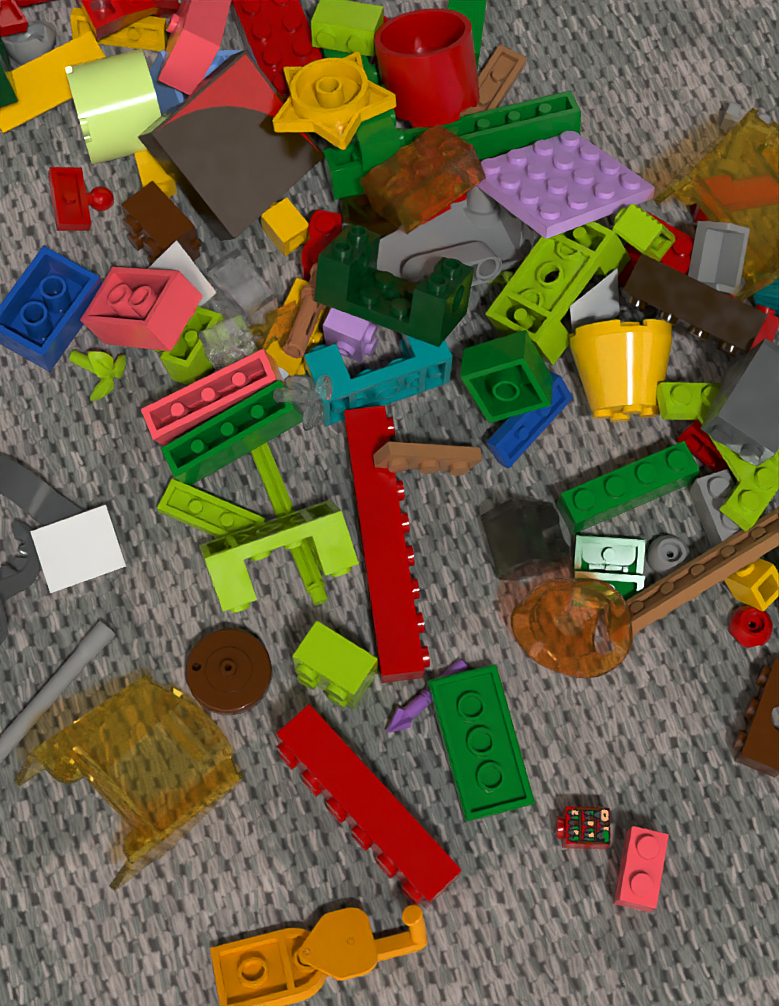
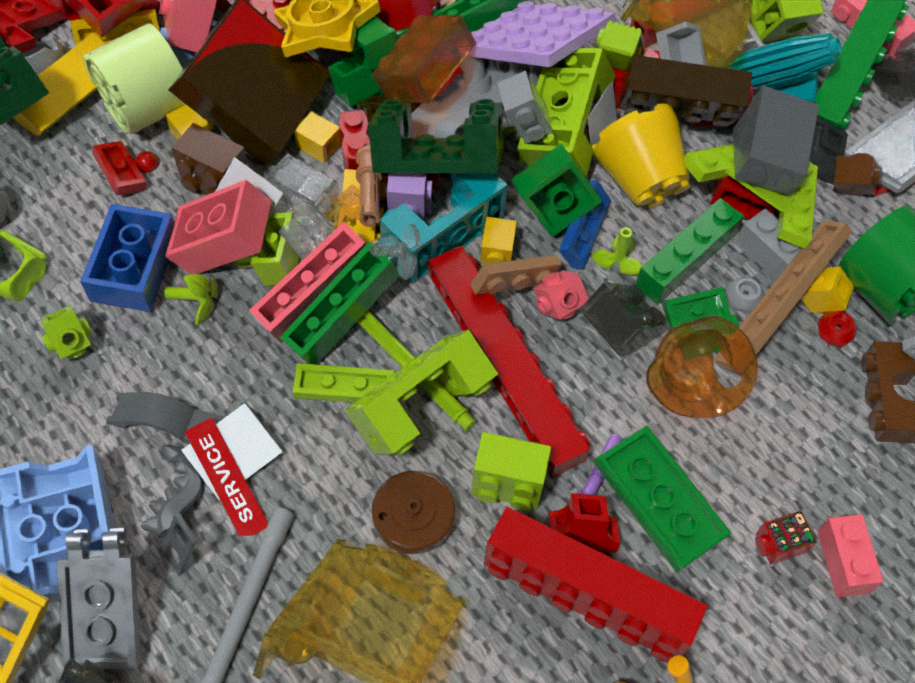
camera: 20 degrees left, 10 degrees down
(63, 574) = (226, 478): none -> red sticker
(389, 744) = (587, 522): none -> red brick
(428, 411) = (497, 240): none -> yellow brick
(466, 493) = (560, 294): none -> coral brick
(502, 277) = (524, 107): none -> light grey brick
(561, 456) = (622, 245): none -> lime plant

